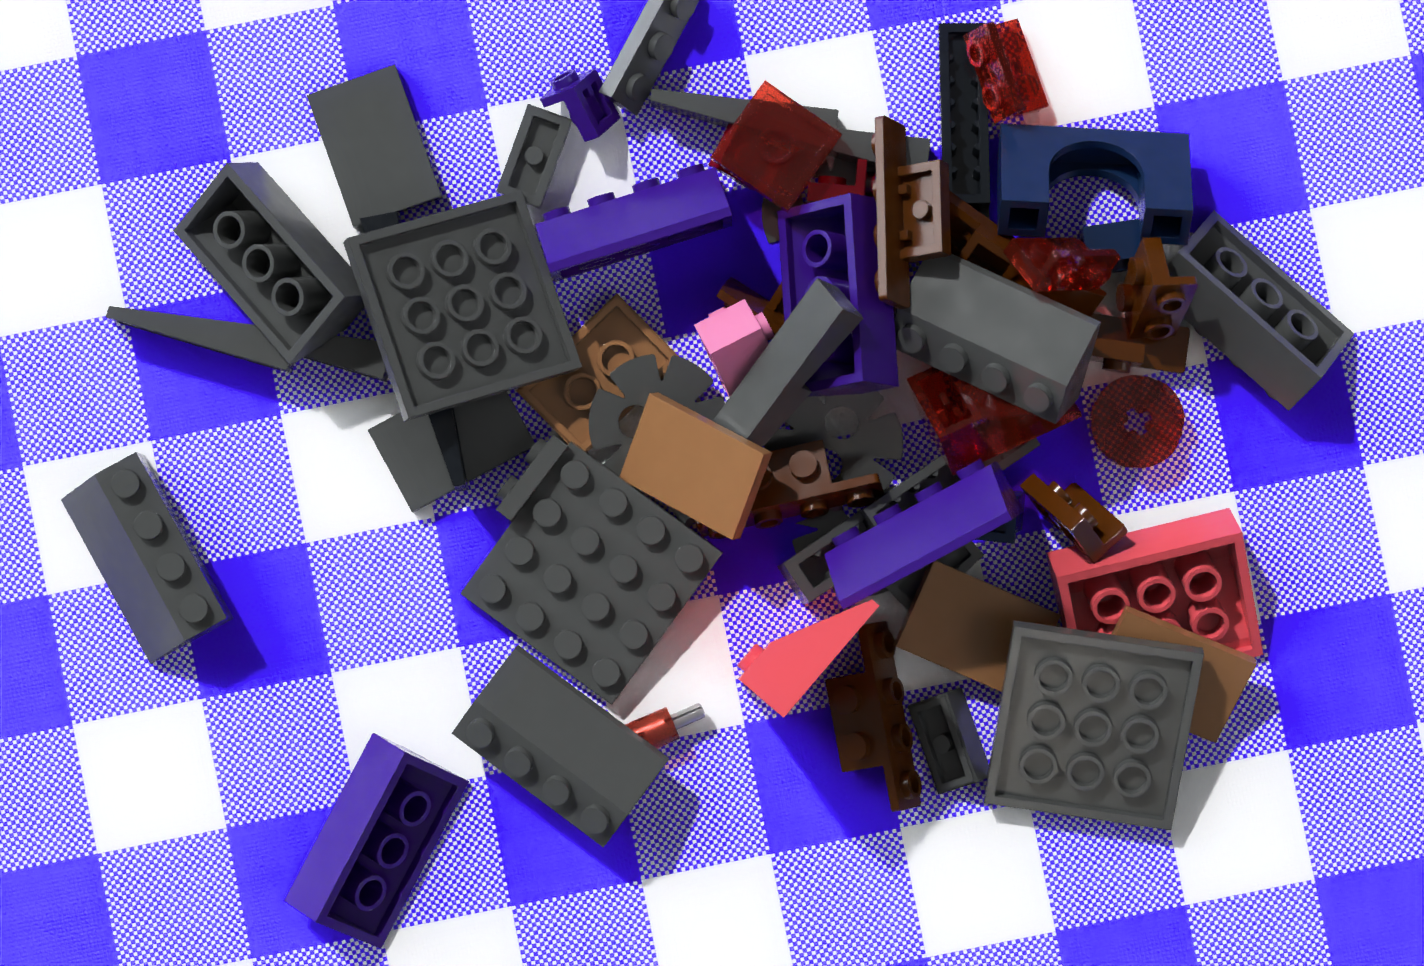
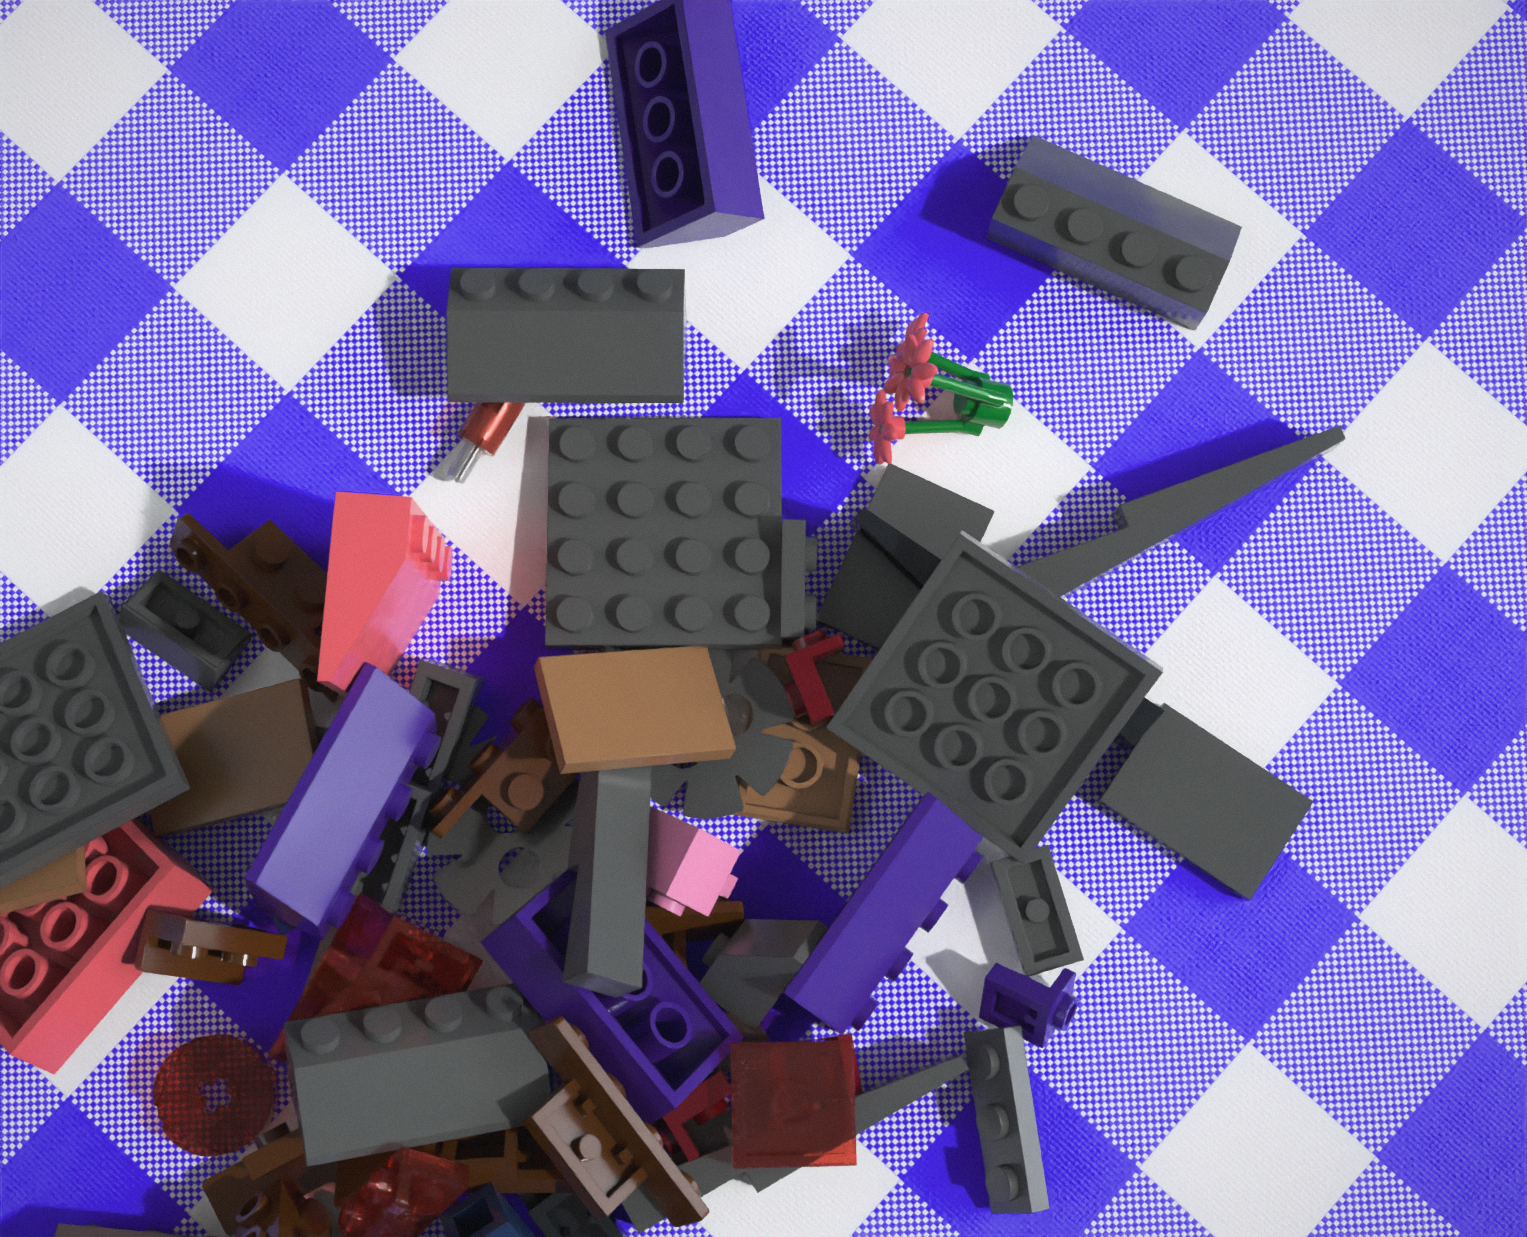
camera: 145 degrees right, 5 degrees down
(271, 260) = (1220, 603): dark grey slope -> none
(325, 510) = (914, 369): none -> plant
(577, 399) = (806, 690): none -> dark red bracket
(734, 248) = (758, 964): none -> dark grey slope

